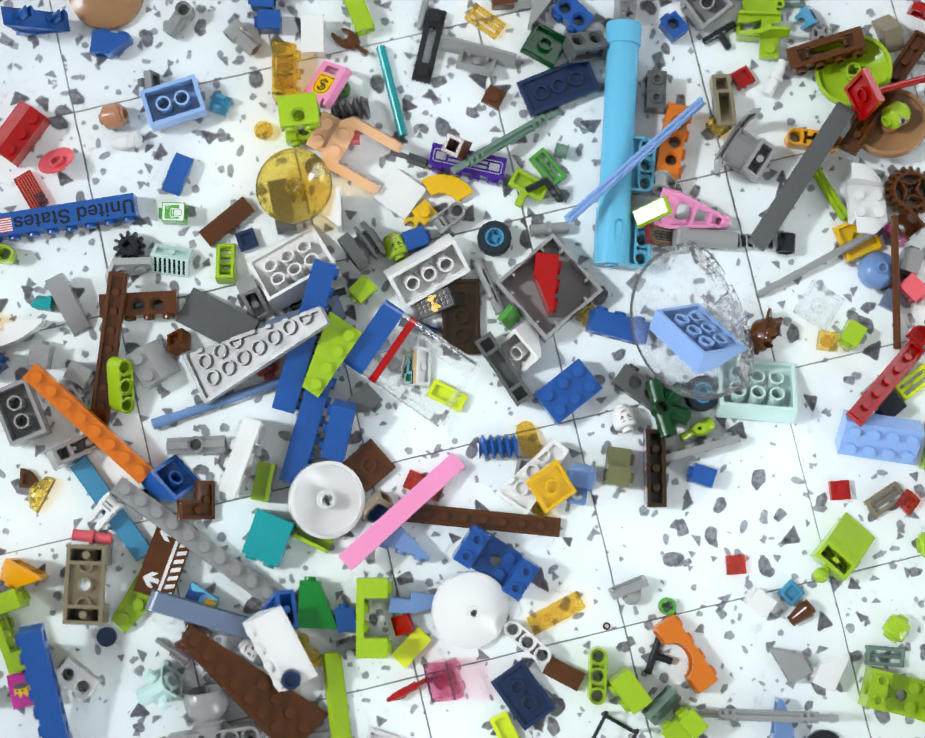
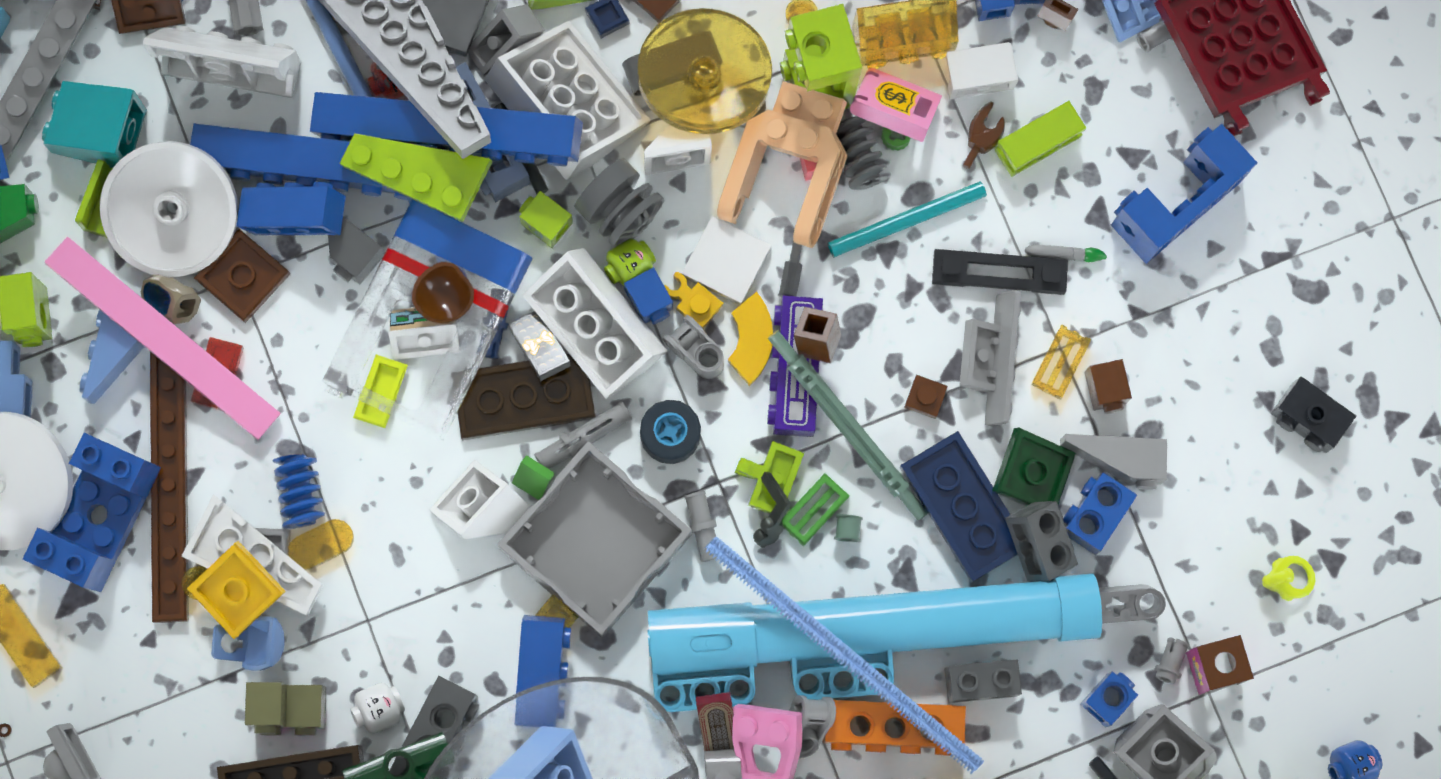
camera: 80 degrees right, 5 degrees down
(264, 481) = (191, 105): lime panel -> none
(402, 348) = (442, 293): none -> reddish brown helmet
(503, 368) = (415, 500): dark grey arch -> none
(544, 275) = (609, 527): red slope -> none
(567, 391) = (412, 598): blue brick -> none
(652, 212) = (753, 699): tile -> none

